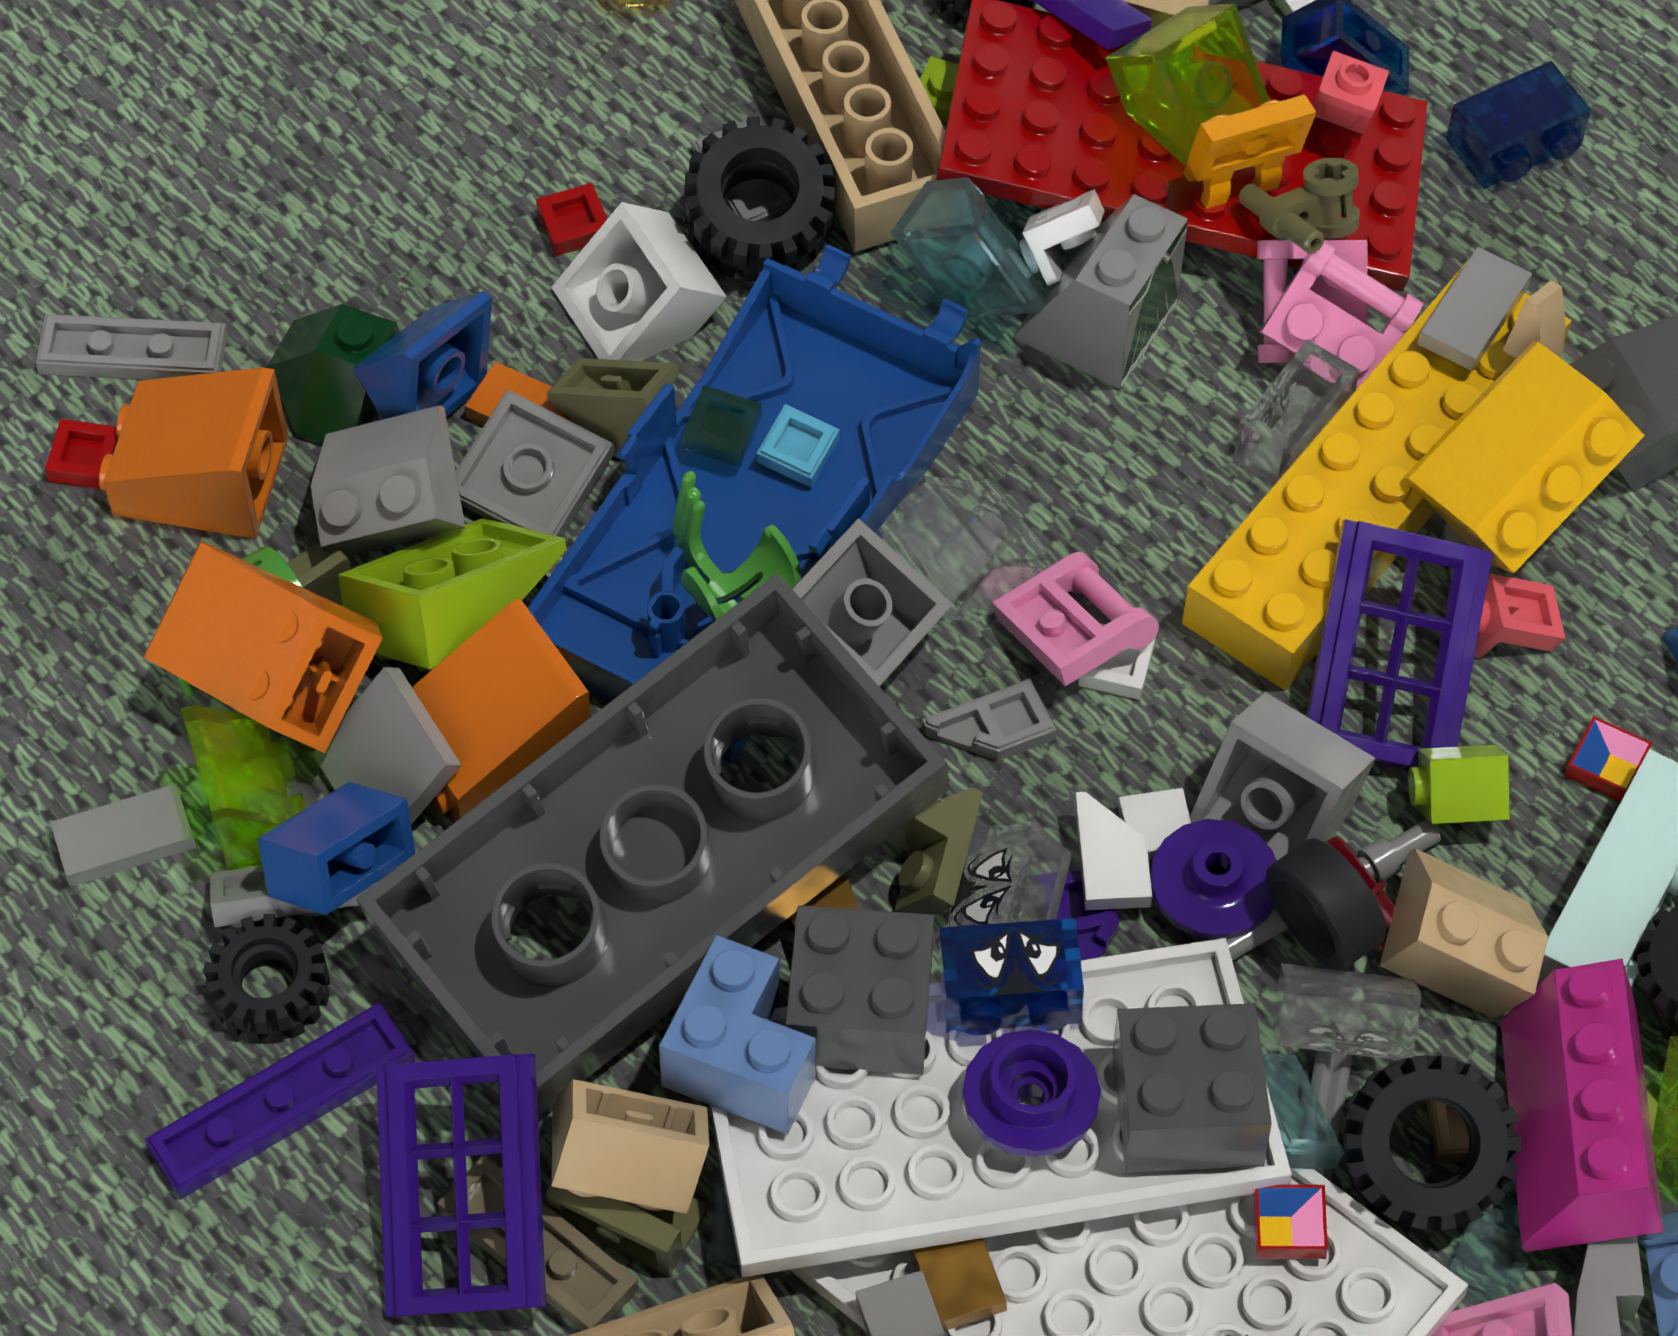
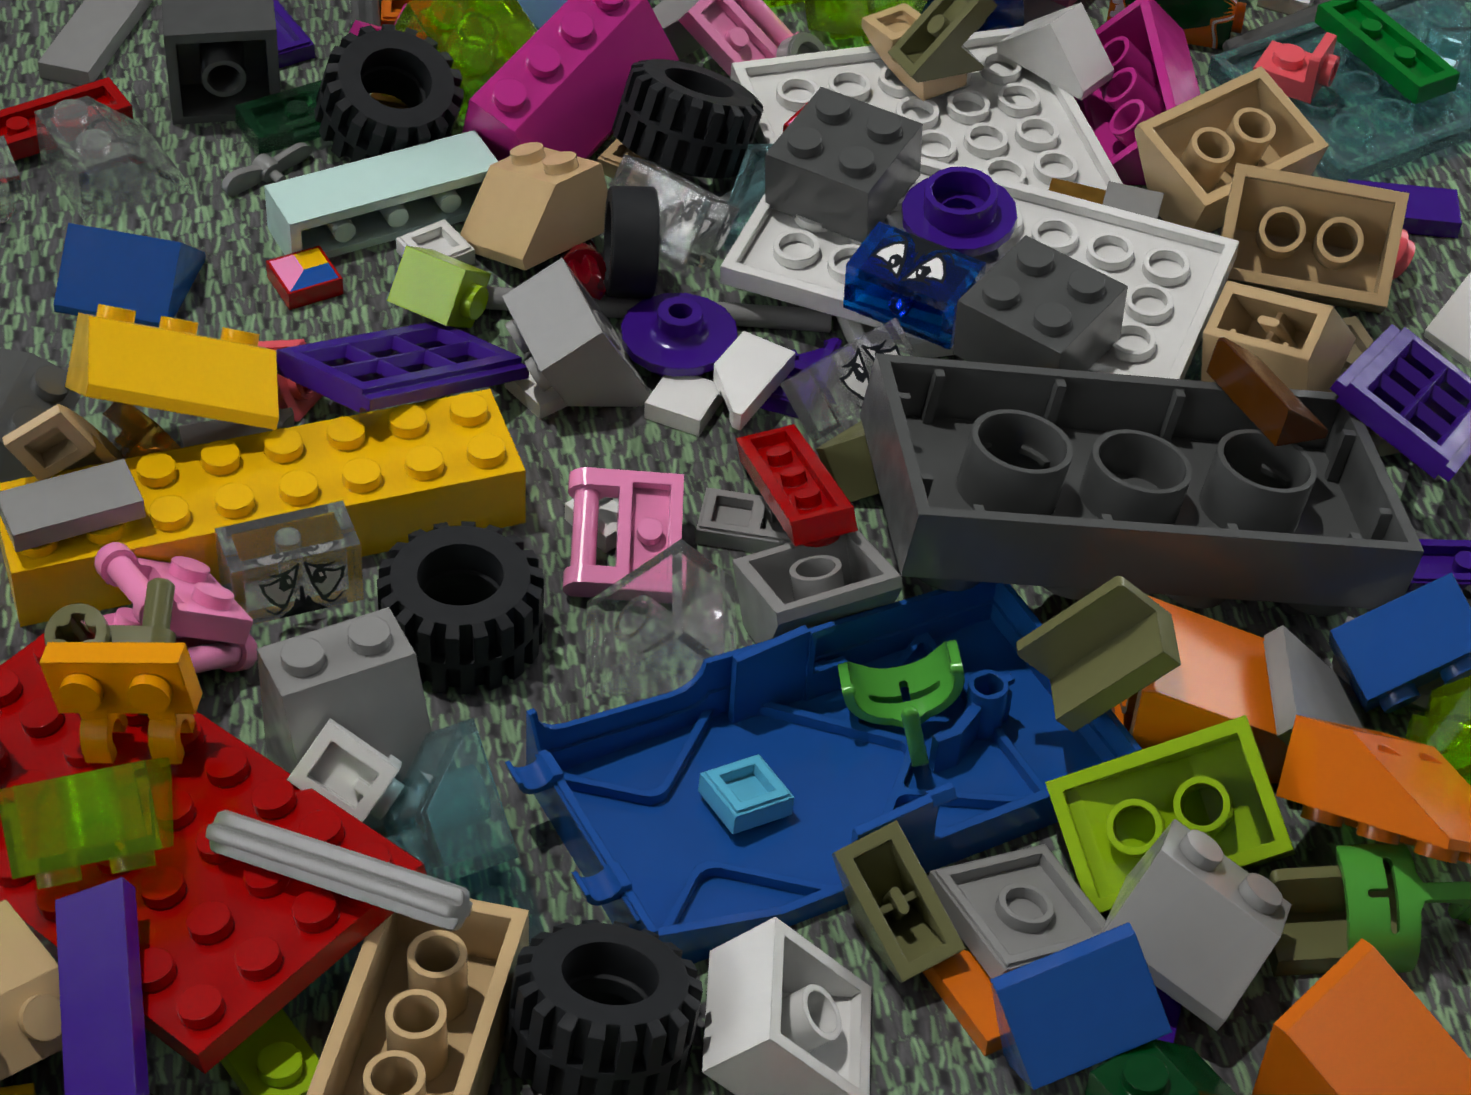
camera: 150 degrees left, 15 degrees down
(571, 611) = (1102, 651): none -> olive panel
(585, 993) = (1262, 395): none -> reddish brown slope
(722, 425) = (807, 831): plate -> none
(728, 1049) = (1166, 321): medium blue brick -> none
(963, 717) = (797, 486): none -> red plate
(981, 110) = (340, 870): none -> light grey axle
(1131, 504) = (465, 603): none -> black tyre
(1533, 870) = (441, 238): none -> white tile

